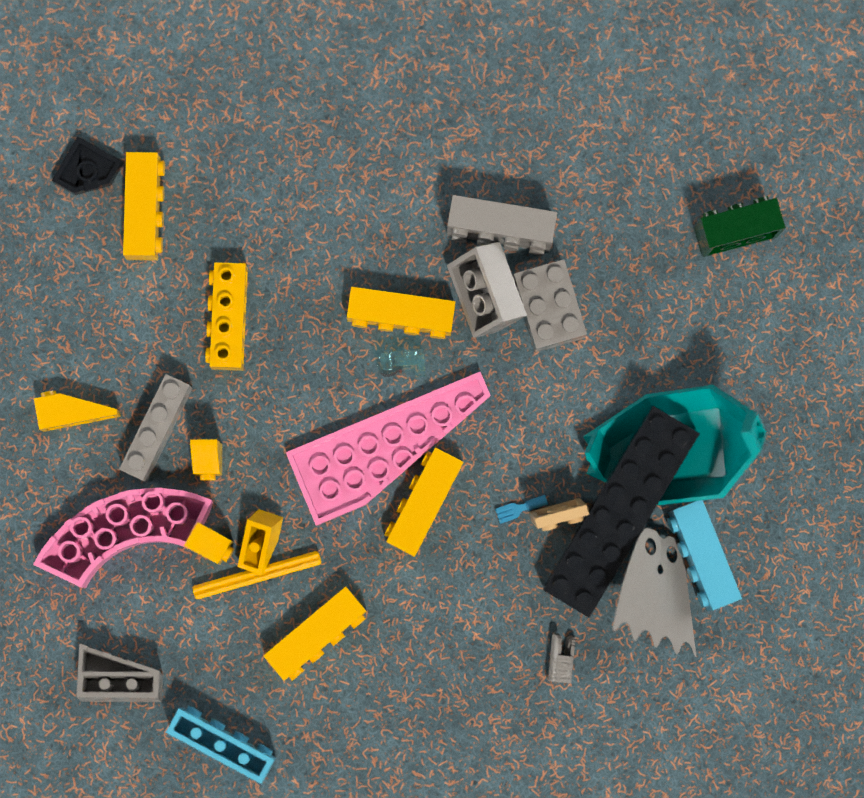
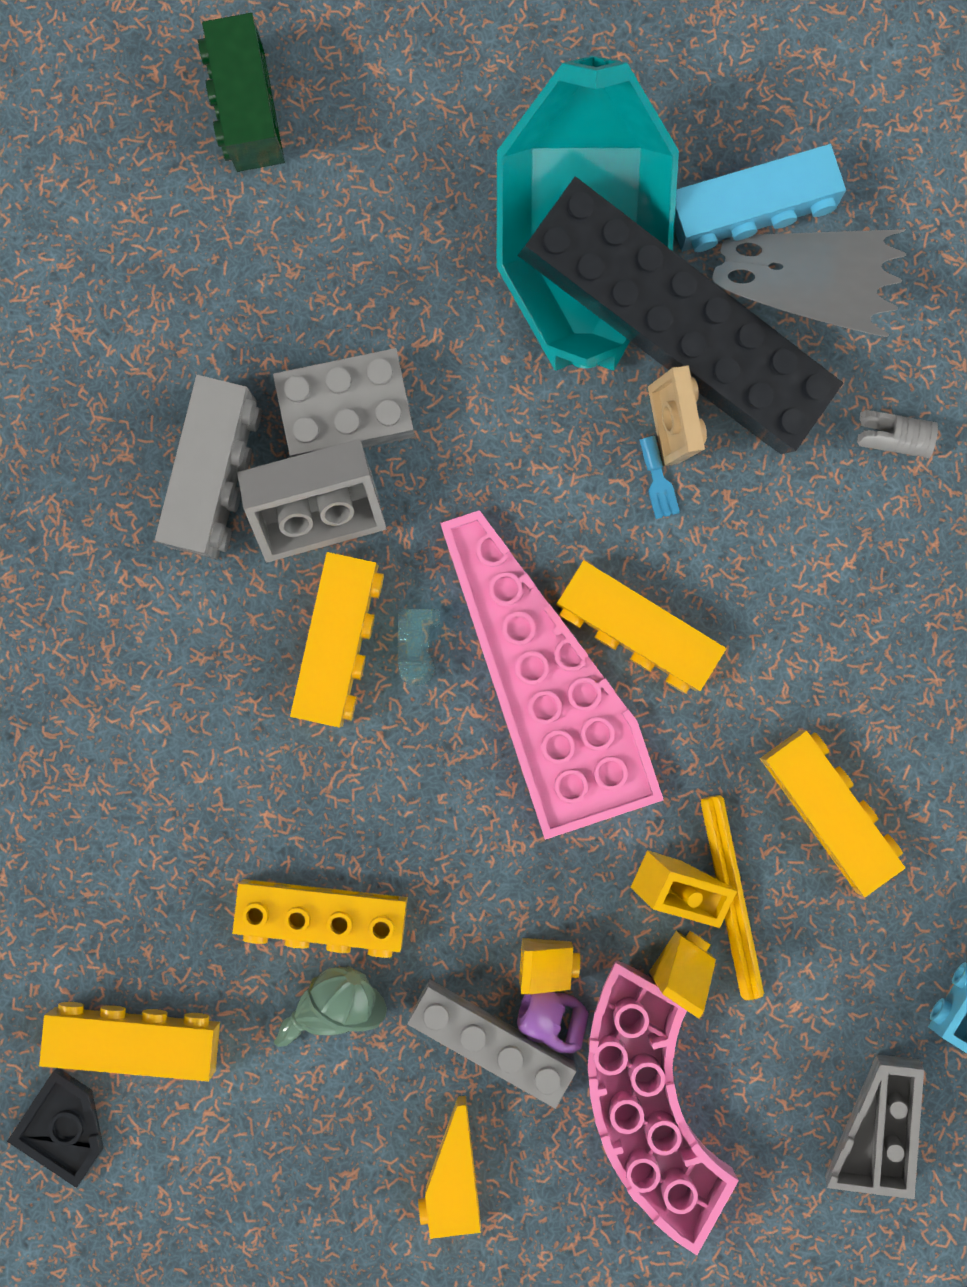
camera: 85 degrees left, 5 degrees up
(174, 329) = (333, 1005): none -> sand green piece
(175, 459) = (542, 1016): none -> medium lavender piece

